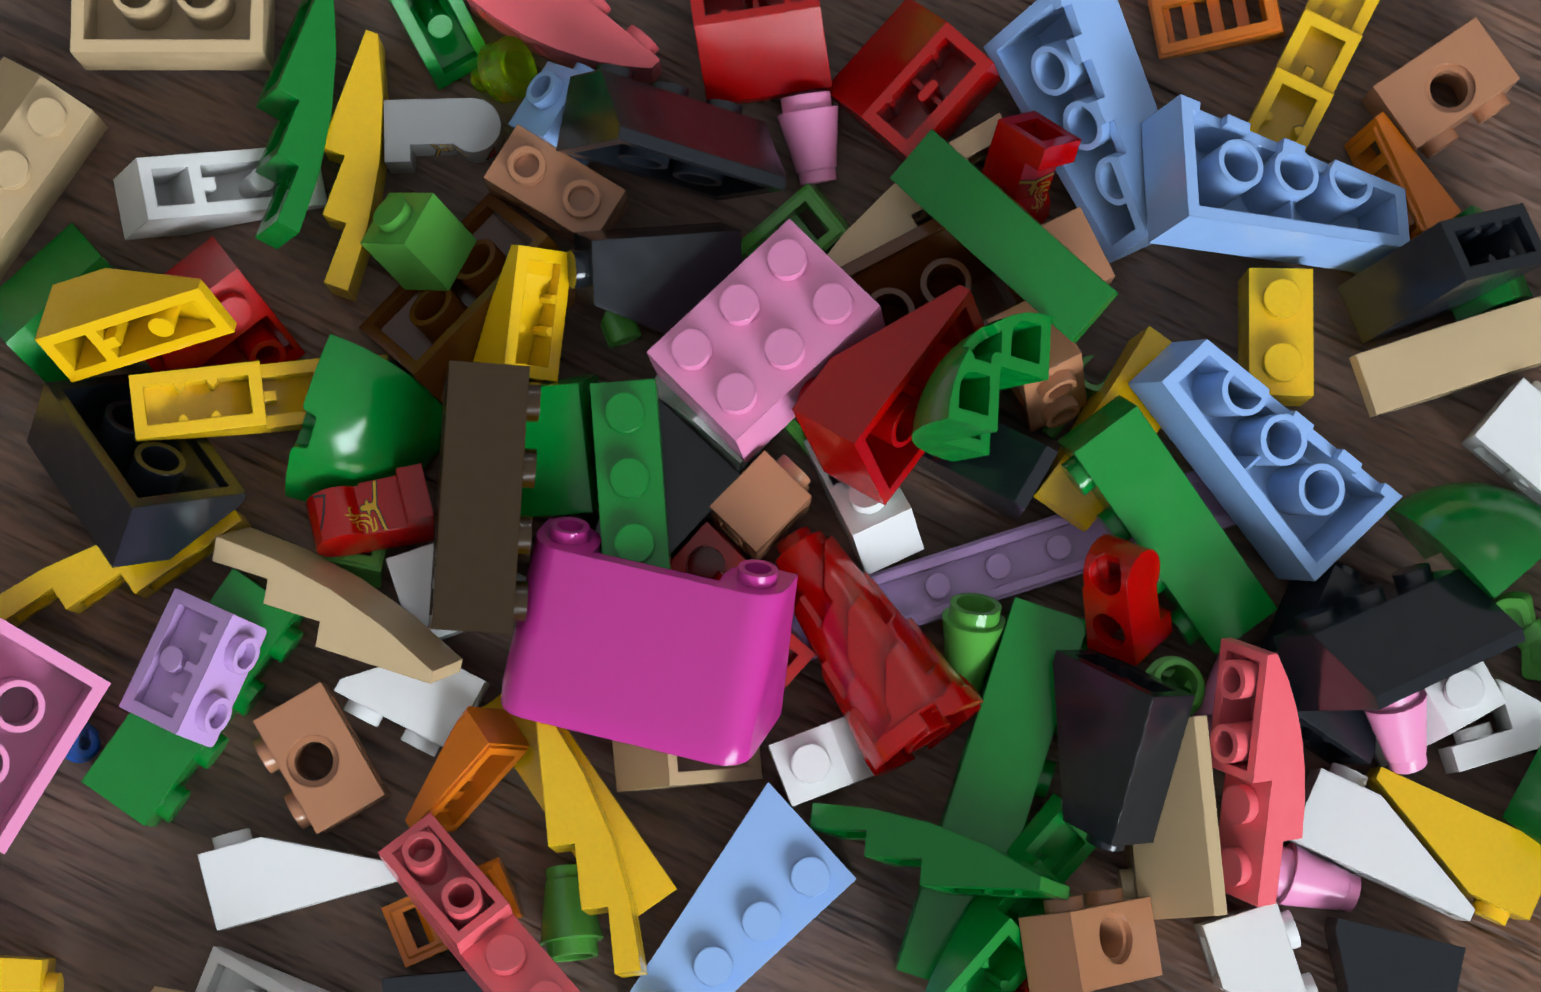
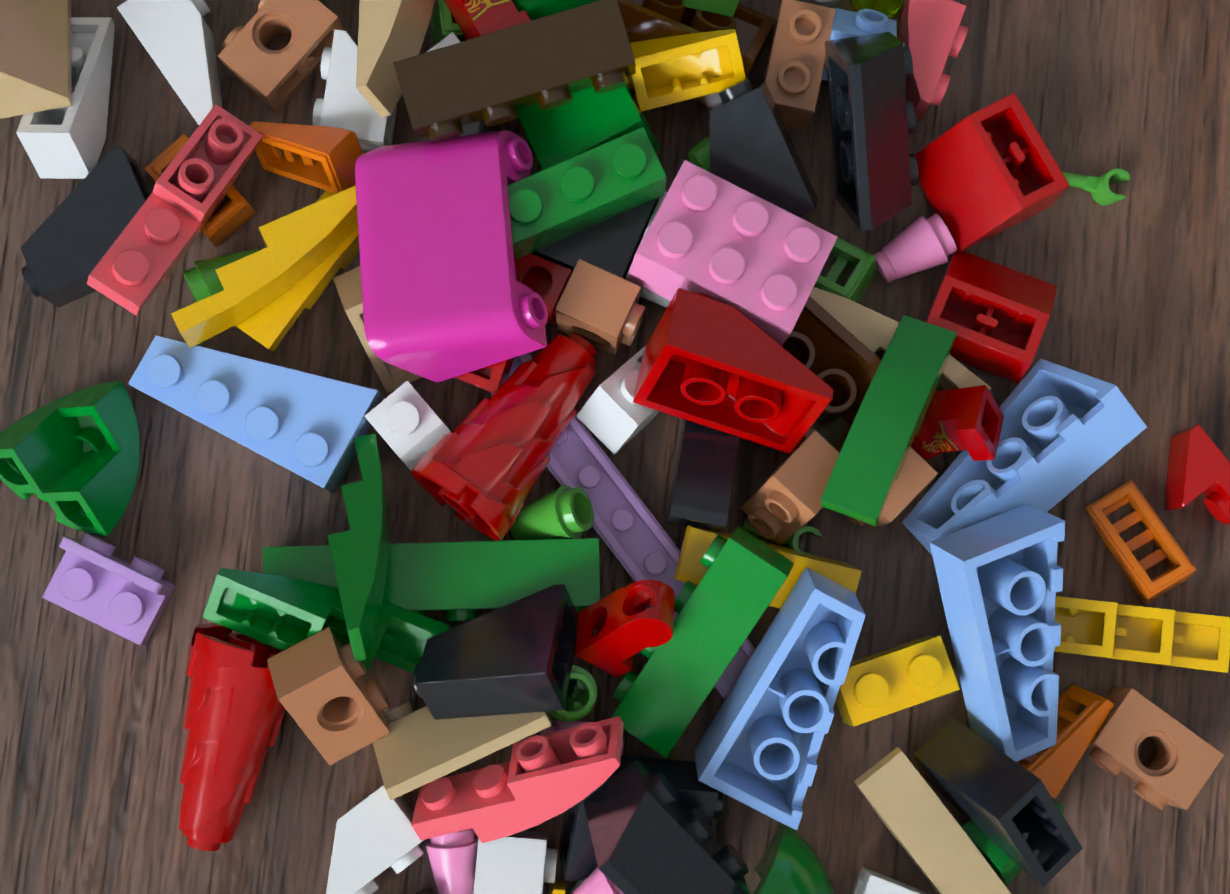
camera: 65 degrees right, 0 degrees up
(963, 391) = (743, 423): green brick -> none

